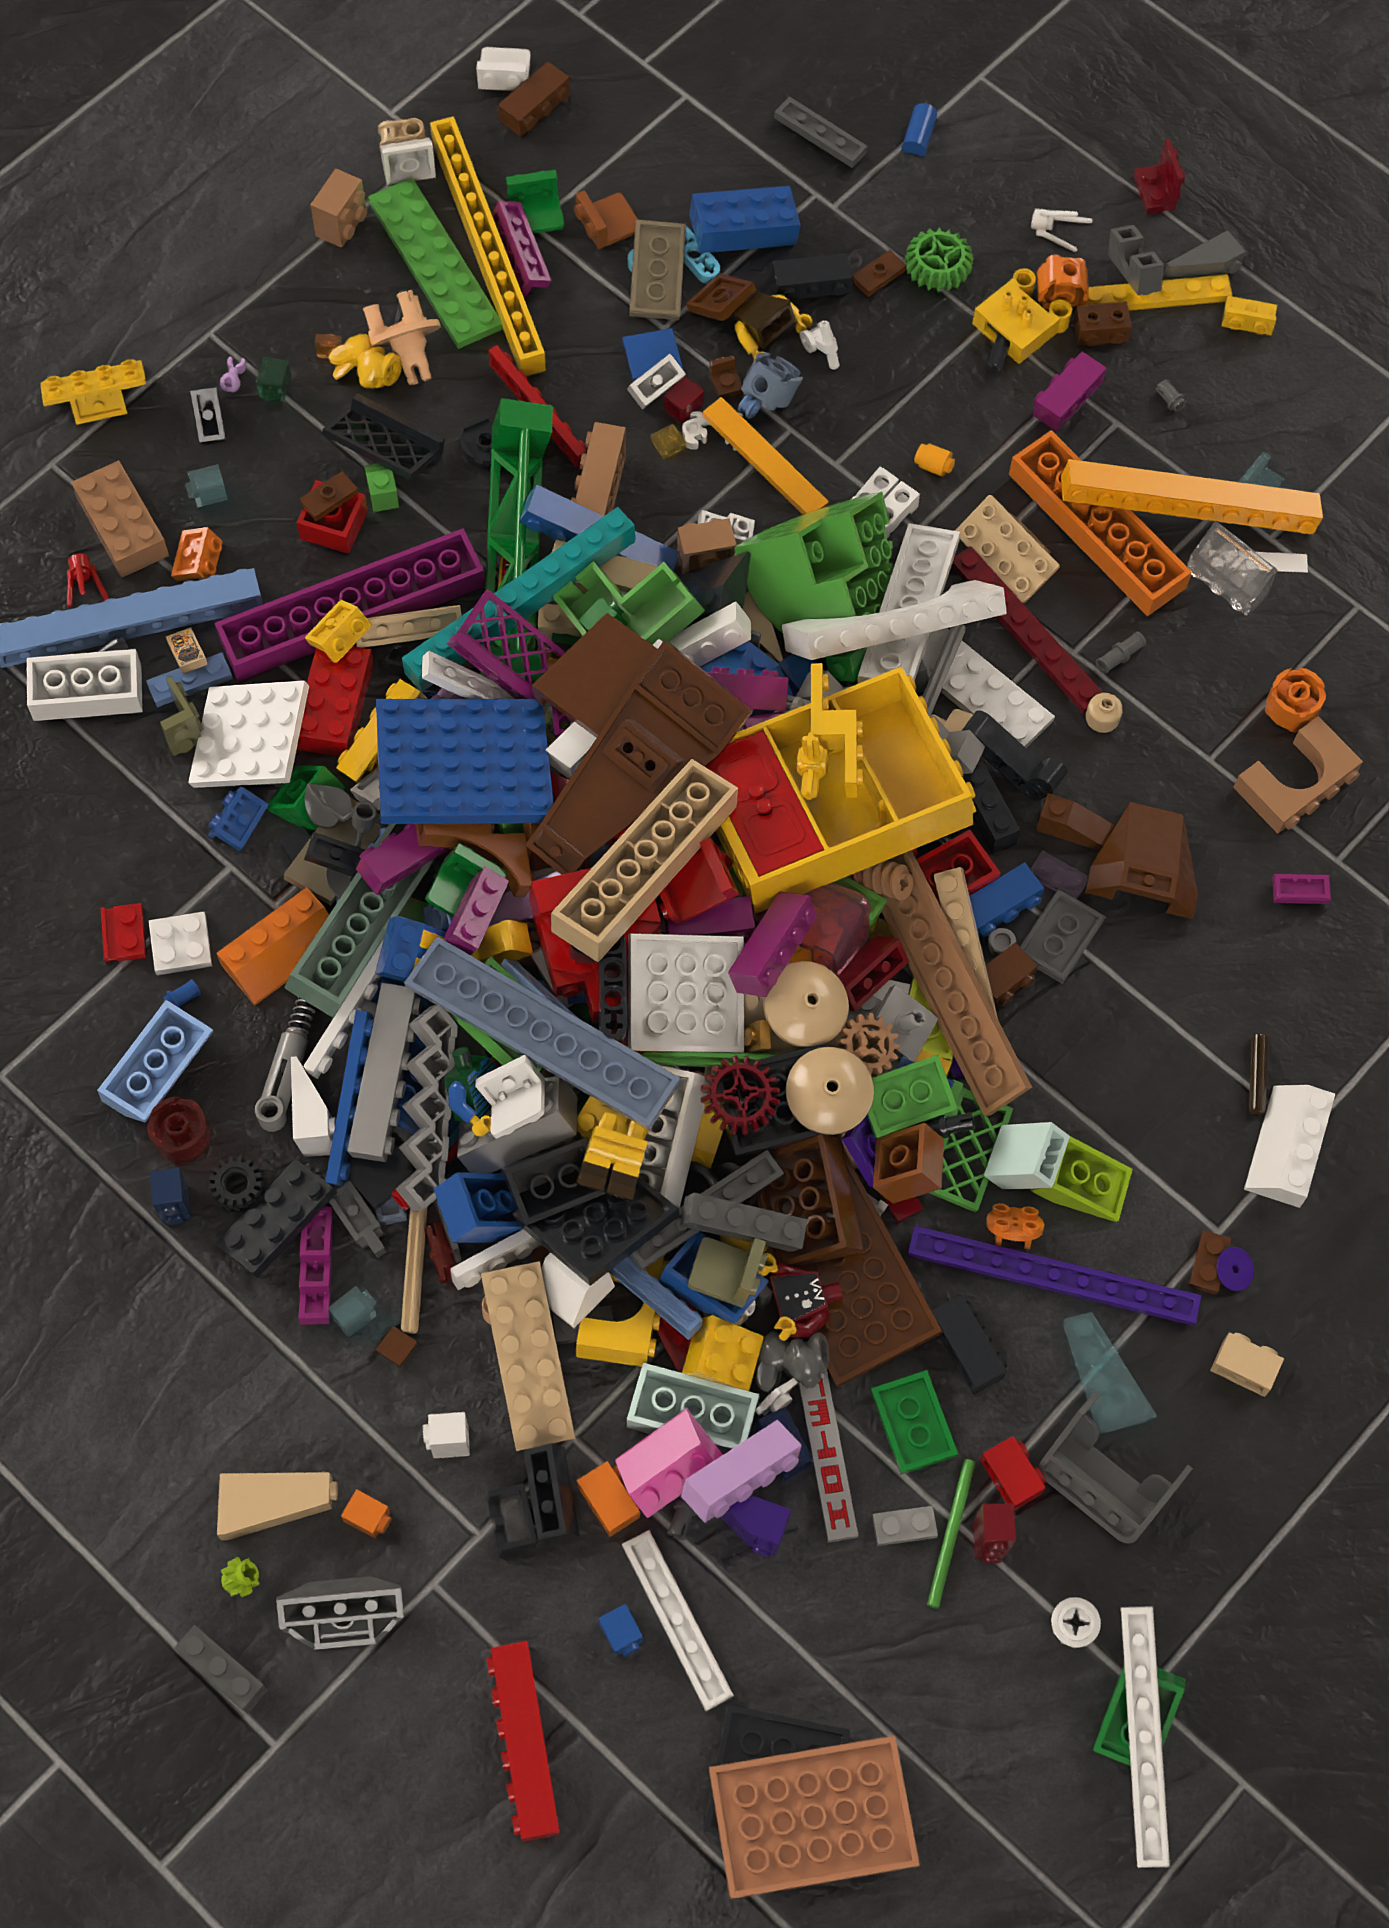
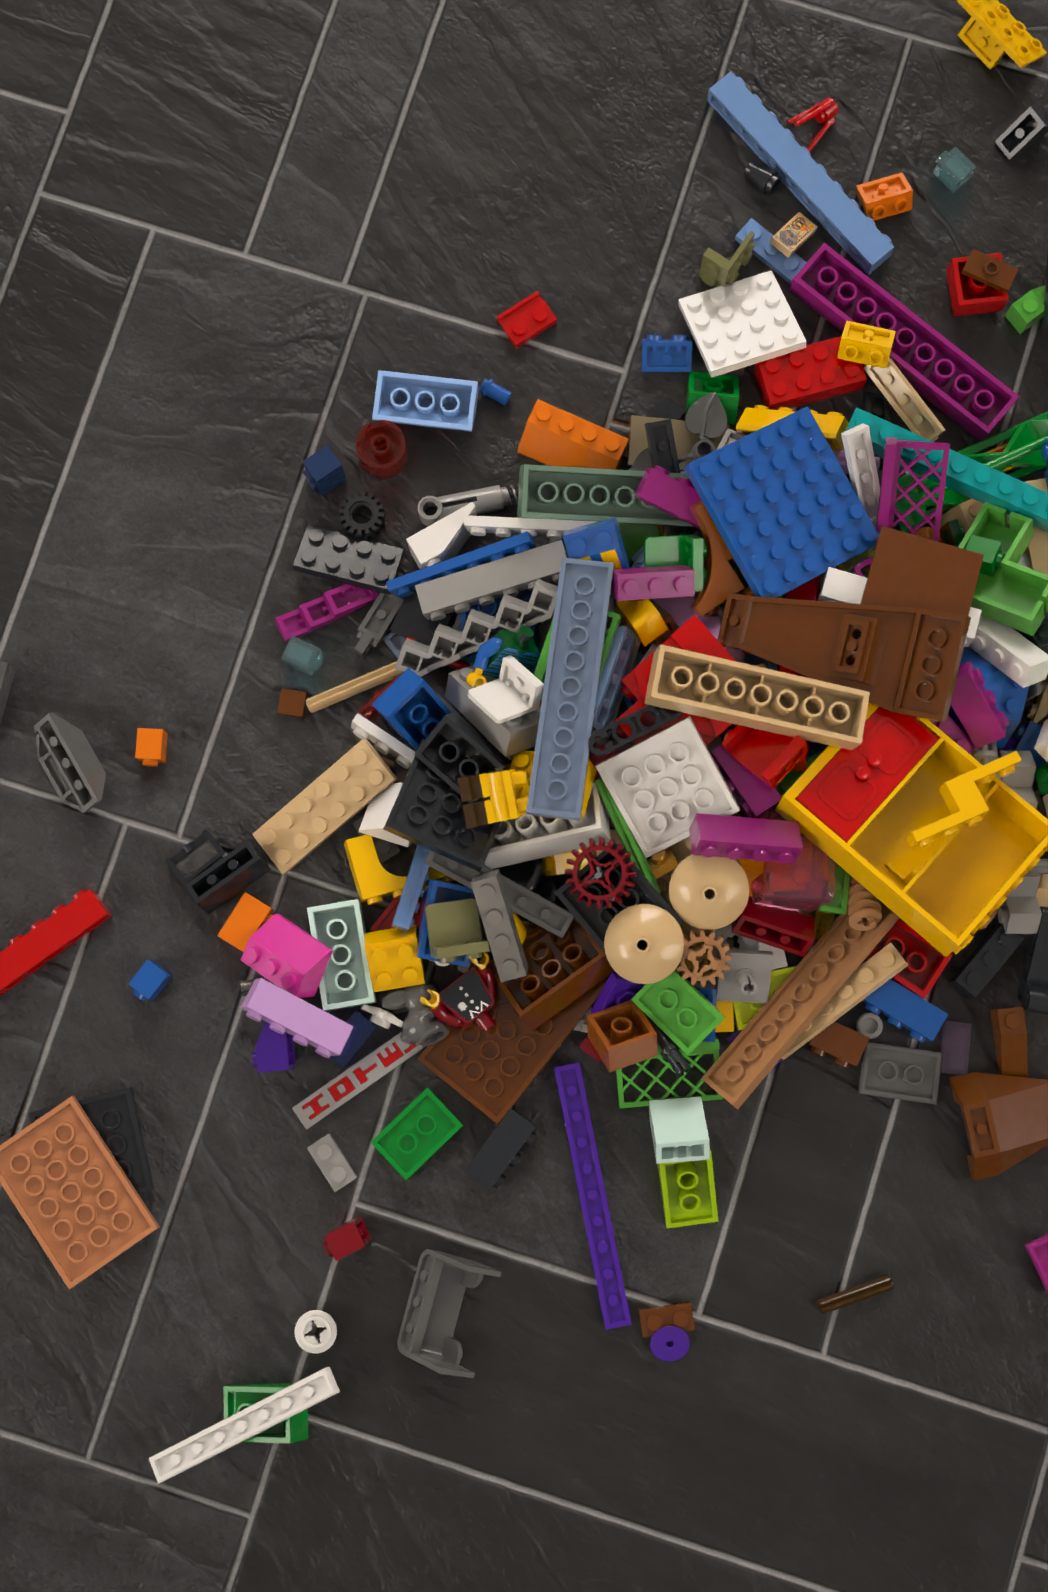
camera: 70 degrees right, 15 degrees up
(84, 685) = (719, 172): white brick -> none
(120, 519) = (885, 117): medium nougat brick -> none
(180, 943) = (539, 367): white plate -> none
(240, 1577) = (62, 677): lime gear -> none
(269, 1499) = (127, 664): tan slope -> none
(447, 1435) = (234, 776): white brick -> none
(677, 1620) = (179, 1019): white tile -> none
(811, 765) = (920, 795): yellow axle -> none
(951, 1534) = (341, 1202): bright green piece -> none
(1013, 1473) = (410, 1231): red brick -> none
(1015, 1224) = (619, 1144): orange plate -> none
(1103, 1371) = (528, 1272): clear light blue wing -> none
(1247, 1363) = (591, 1386): tan brick -> none
(1289, 1143) = (804, 1346): white slope -> none

